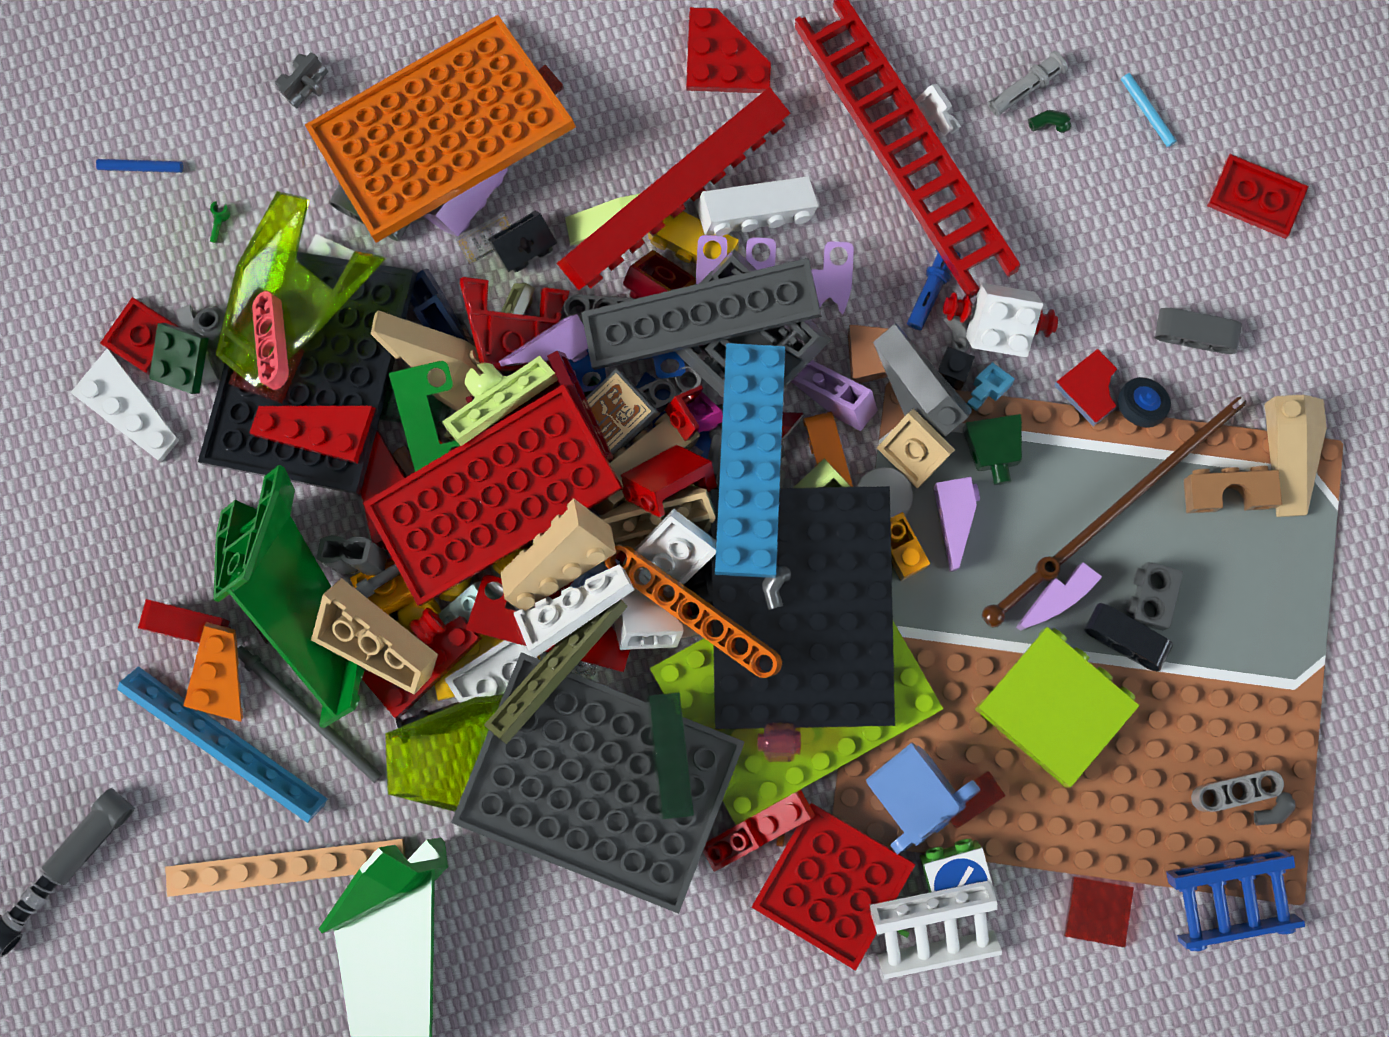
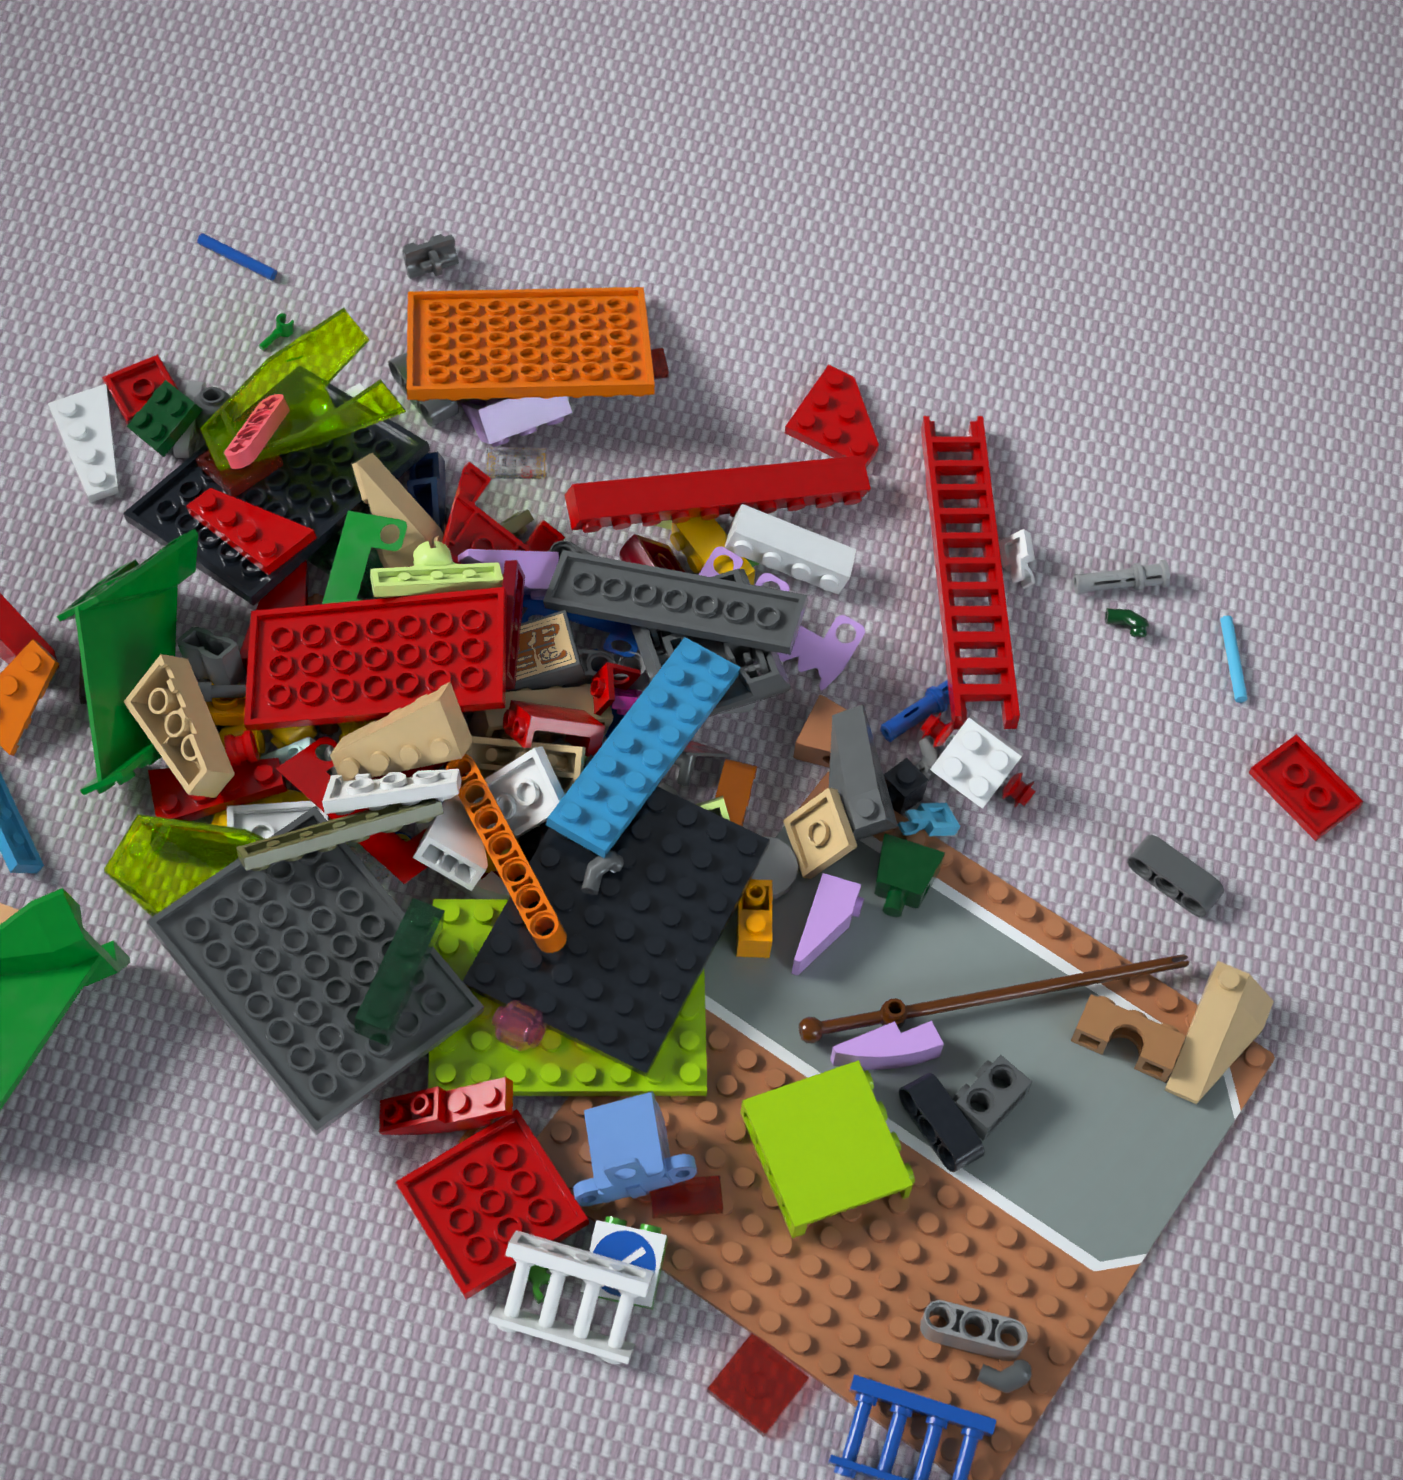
camera: 20 degrees right, 20 degrees down
(253, 663) = (56, 712): dark grey bar -> none
(507, 242) = (532, 468): black brick -> none
(836, 393) = (777, 758): lavender slope -> none
(1088, 387) = (1032, 871): red tile -> none
(1144, 402) = (1082, 912): black wheel -> none

